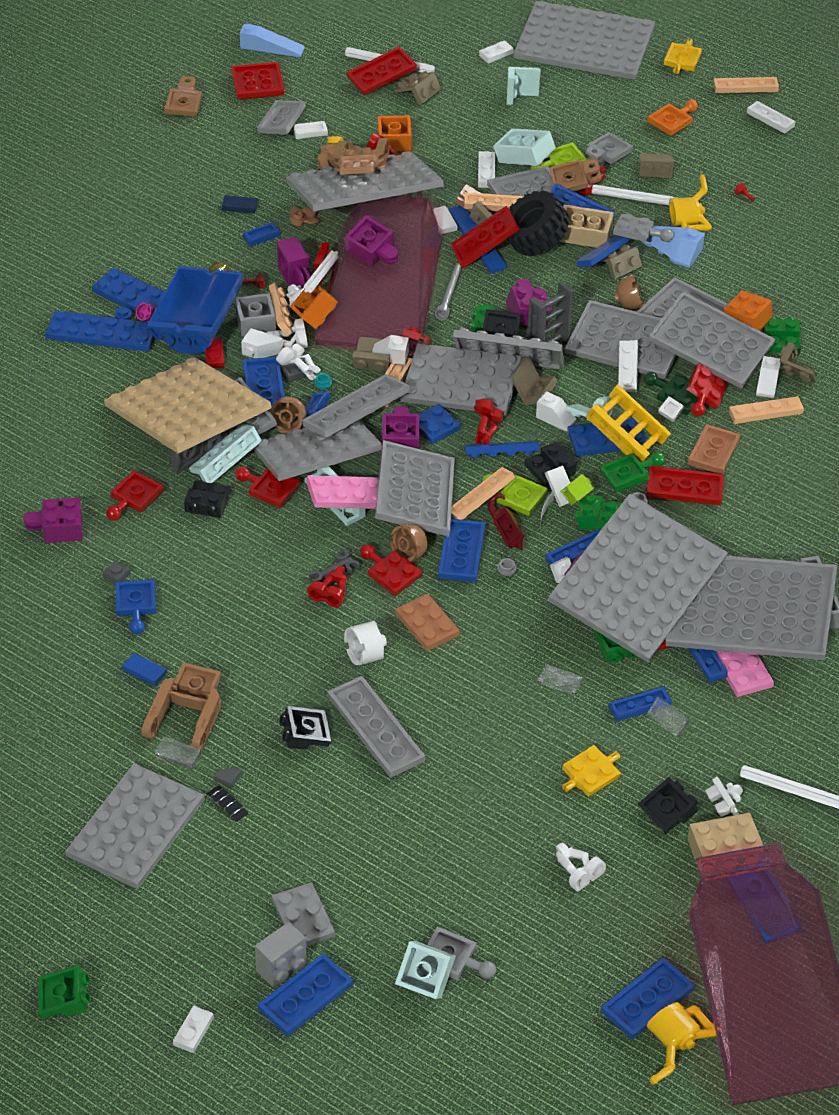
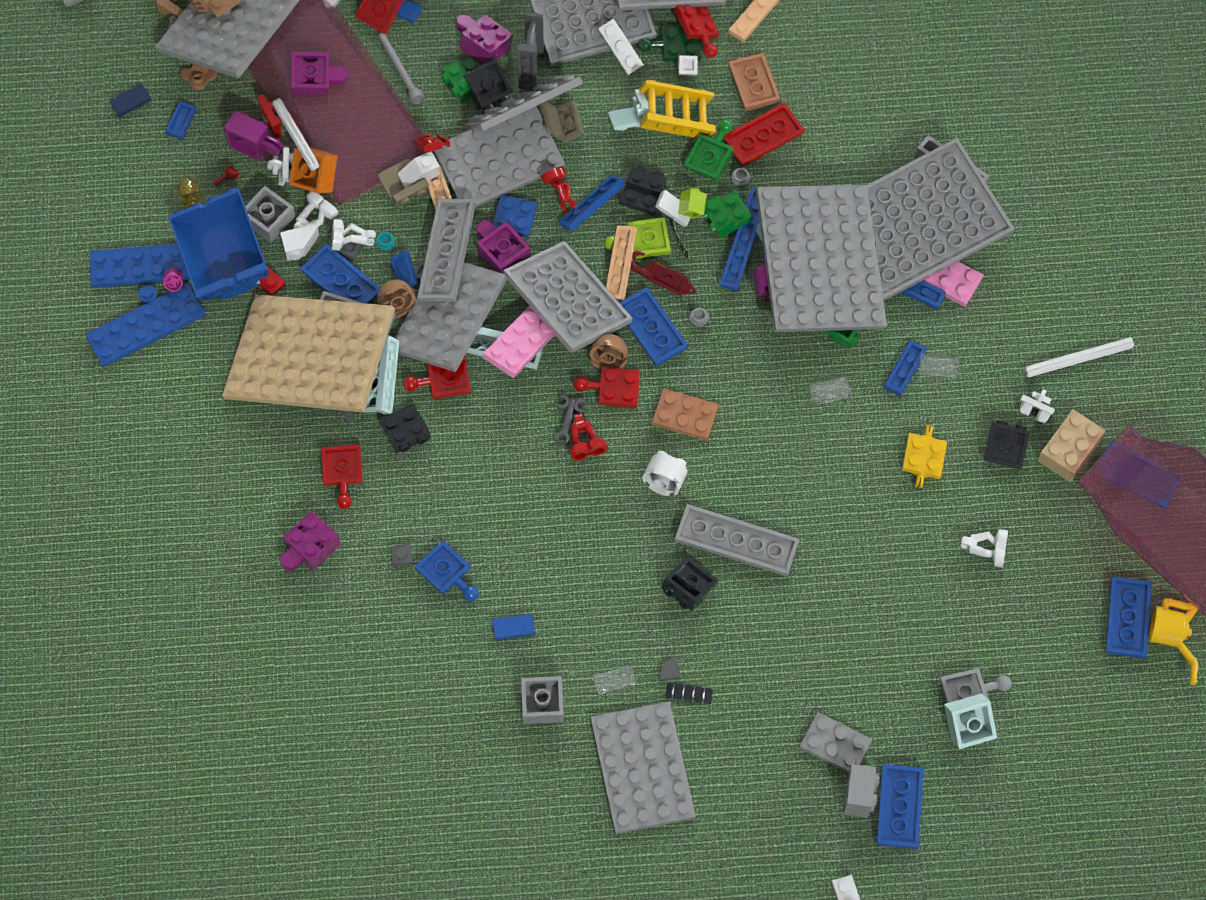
camera: 40 degrees left, 20 degrees up
(108, 724) = (542, 700): none -> light grey brick
(193, 689) = (577, 615): medium nougat plate -> none
(281, 312) = (288, 195): light nougat plate -> none
(553, 411) = (601, 135): white slope -> none
(559, 568) = (744, 288): white plate -> none
(589, 440) = (651, 144): blue plate -> none

